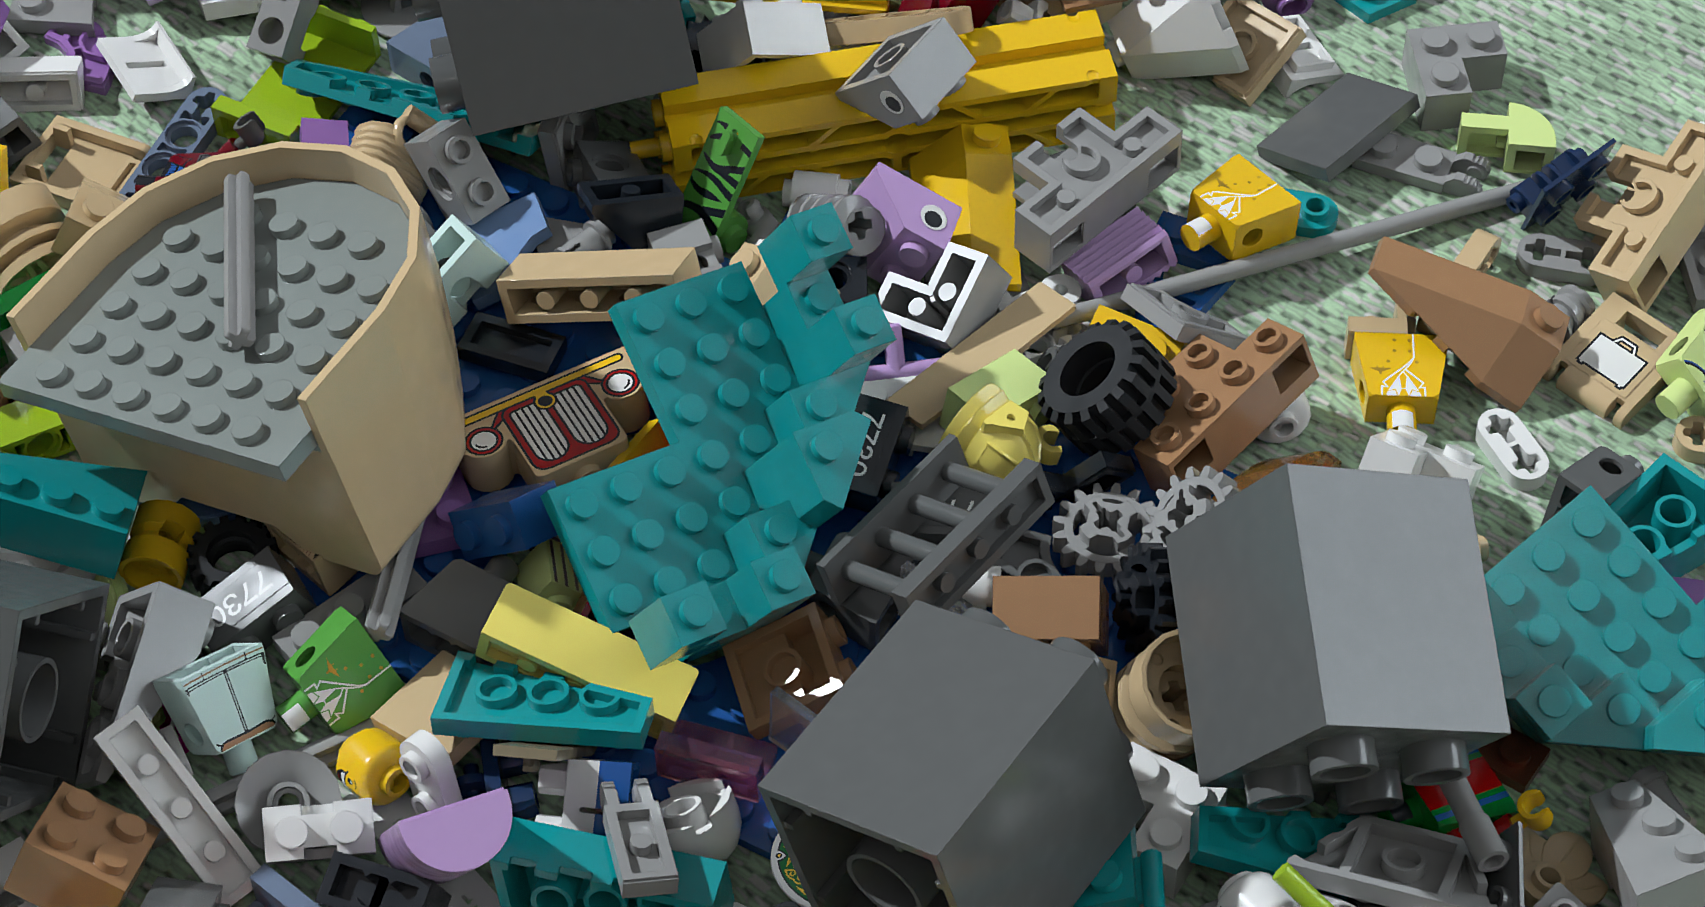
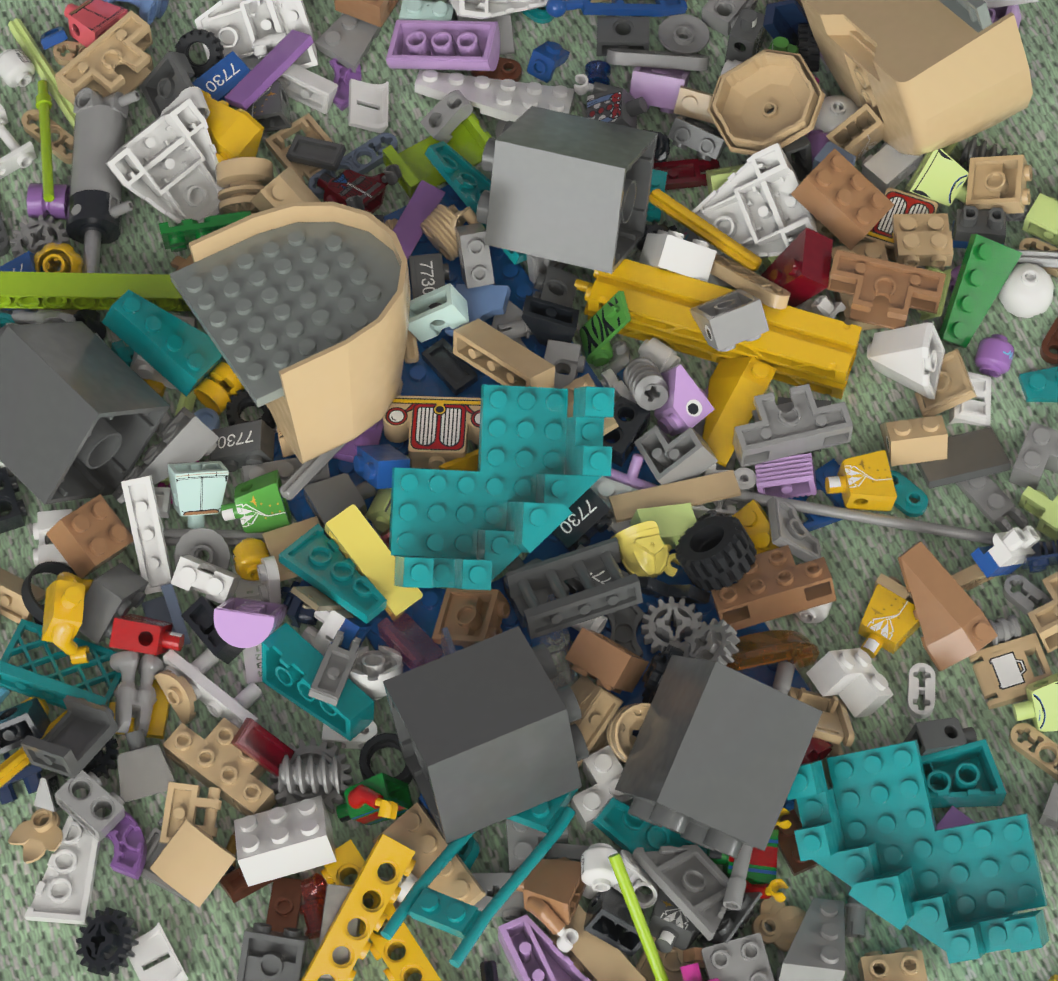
camera: 30 degrees right, 10 degrees up
(105, 159) = (316, 152): none -> dark grey tile
(239, 261) = (309, 270): light grey axle -> none
(1265, 124) = (915, 440): none -> tan slope
(1508, 200) = (1007, 553): none -> white hips

